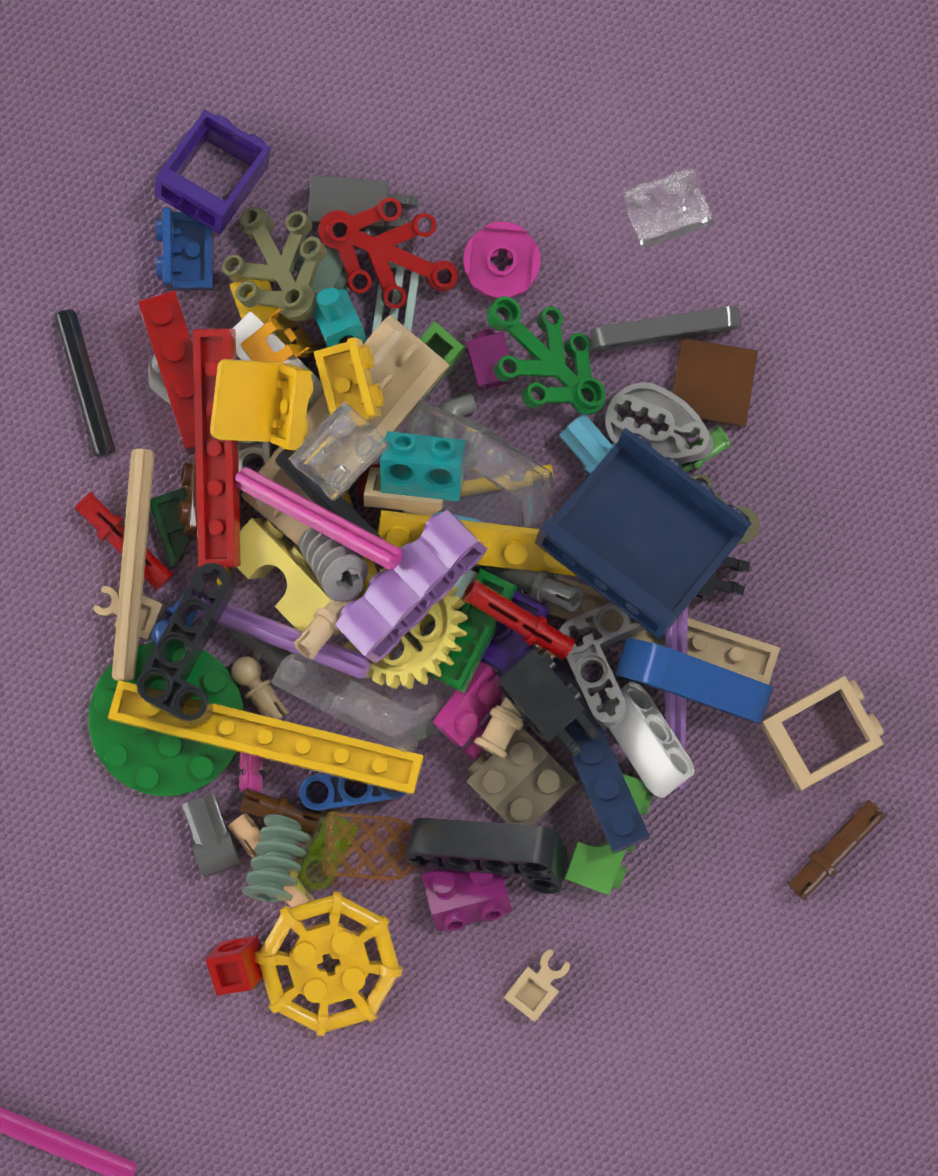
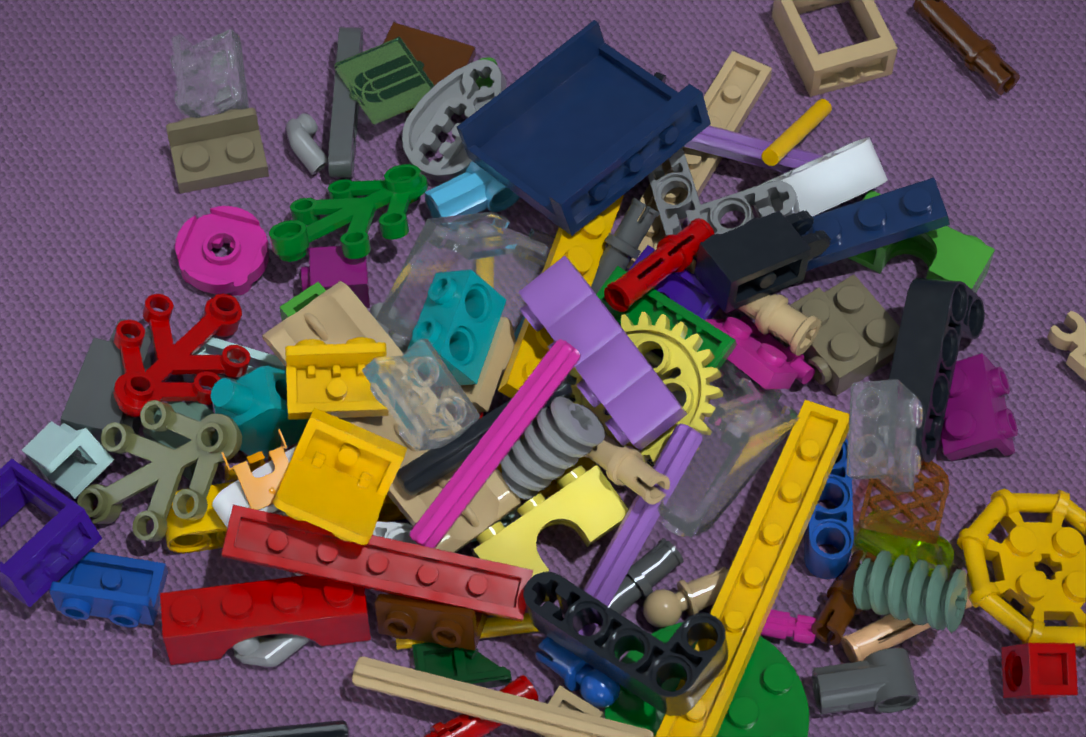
camera: 85 degrees left, 25 degrees down
(285, 187) = (68, 457): none -> light aqua window
(401, 822) = (884, 434): none -> clear bracket
(597, 233) = (217, 150): none -> dark tan bracket
(618, 300) = (300, 137): none -> light grey arm
(685, 358) = (385, 80): none -> clear green piece
(694, 679) = (750, 127): blue beam -> none
(699, 714) = (796, 132): none -> yellow bar

